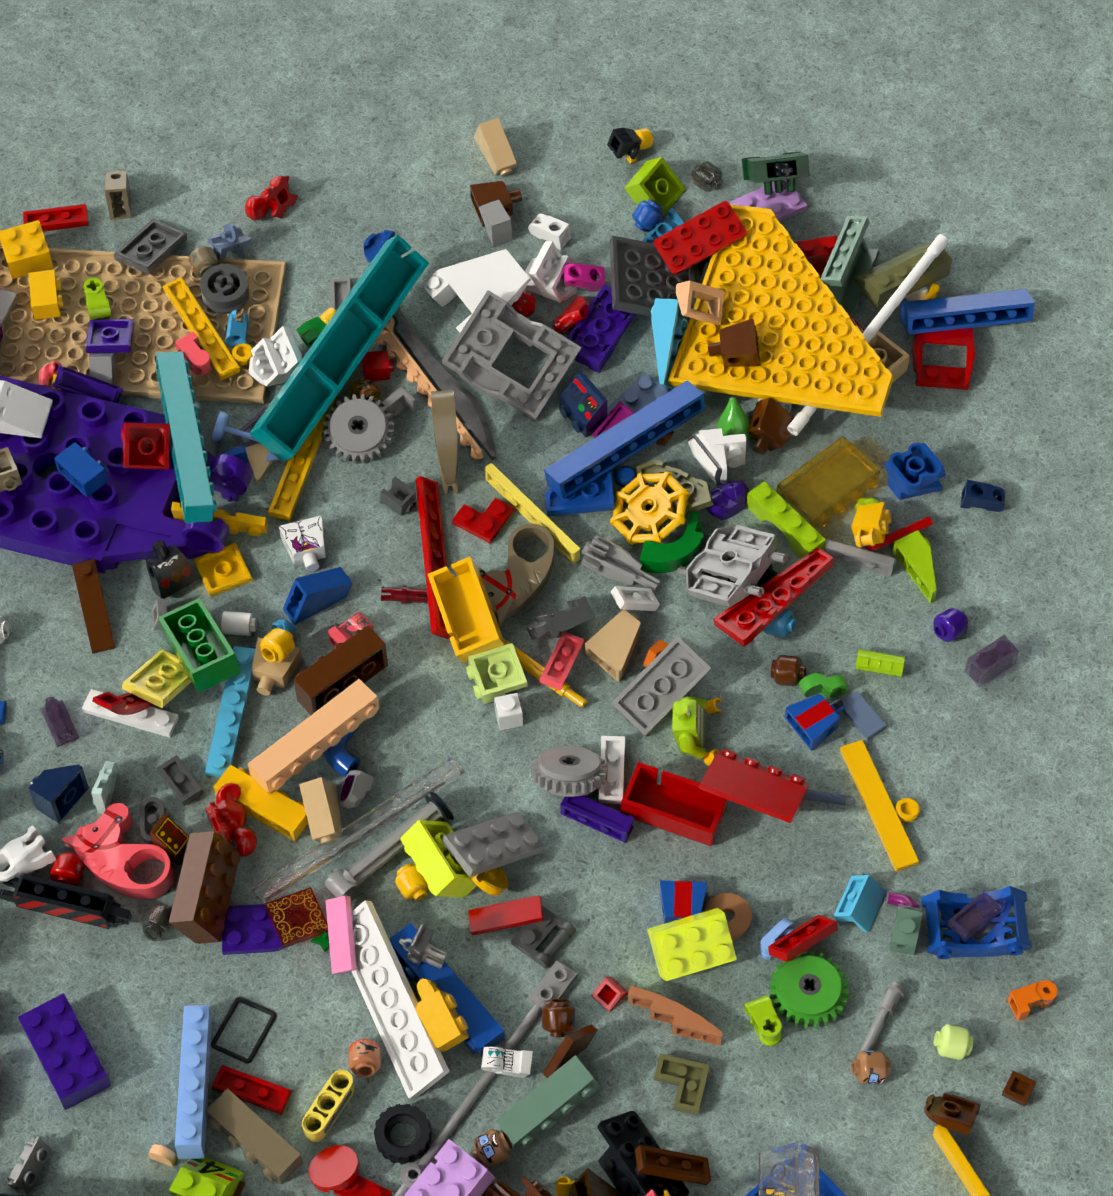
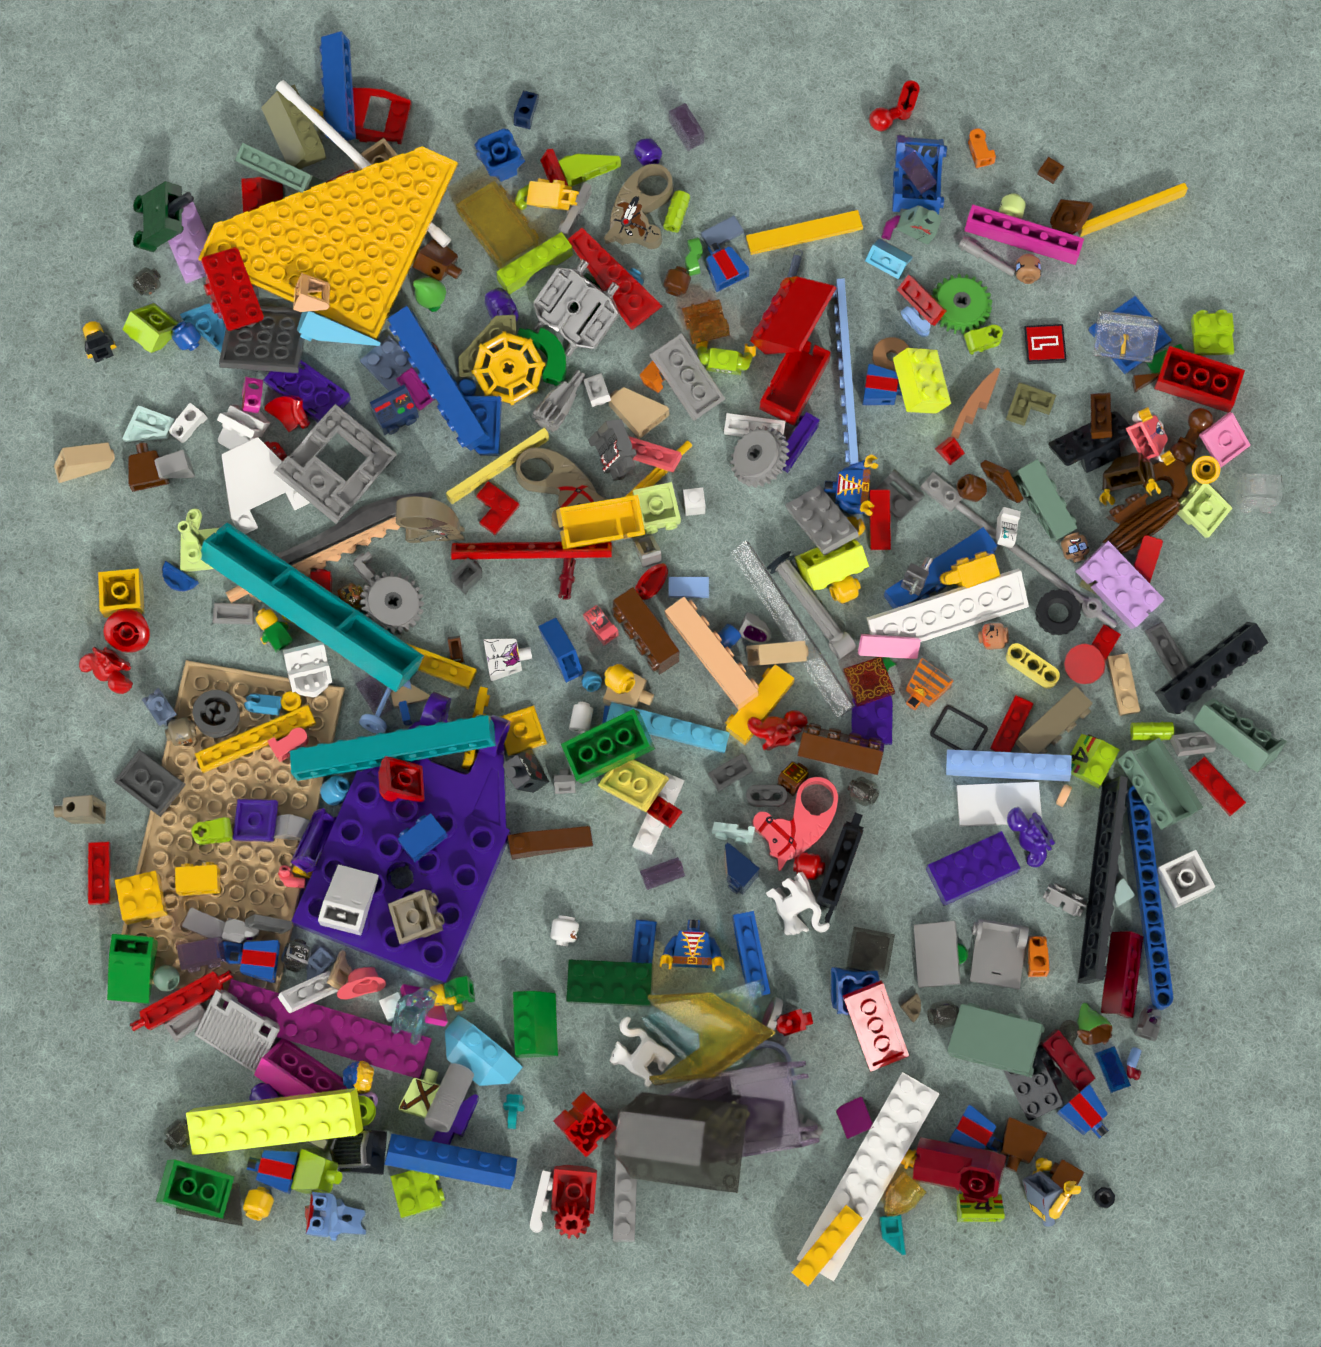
camera: 85 degrees left, 15 degrees up
(105, 1118) = (1032, 835): none -> dark purple animal
(146, 395) = (334, 790): none -> dark azure head
(150, 1081) = (991, 802): none -> white tile
(296, 983) = (926, 685): none -> torso
(311, 203) = (127, 630): none -> red hat
(315, 498) = (455, 648): none -> reddish brown piece
(352, 195) = (120, 591): none -> yellow brick
(404, 719) = (689, 587): none -> light blue tile
(406, 229) = (192, 542): none -> yellowish green piece
(407, 679) = (652, 581): none -> red arm
(444, 670) = (647, 550): none -> light grey slope
(543, 196) = (147, 426): none -> light aqua wing
(544, 878) = (853, 487): none -> torso
(690, 864) = (845, 381): none -> light blue plate
(718, 452) = (463, 308): white piece -> none
(737, 345) = (361, 270): reddish brown torso -> none
(737, 711) = (705, 327): none -> clear orange brick
(770, 1098) = (1045, 344): none -> red tile
(876, 614) = (628, 214): none -> dark tan animal
(907, 810) = (810, 212): yellow tile -> none
(916, 1057) = (1024, 234): none -> dark pink brick
(1049, 877) = (882, 118): none -> red beam

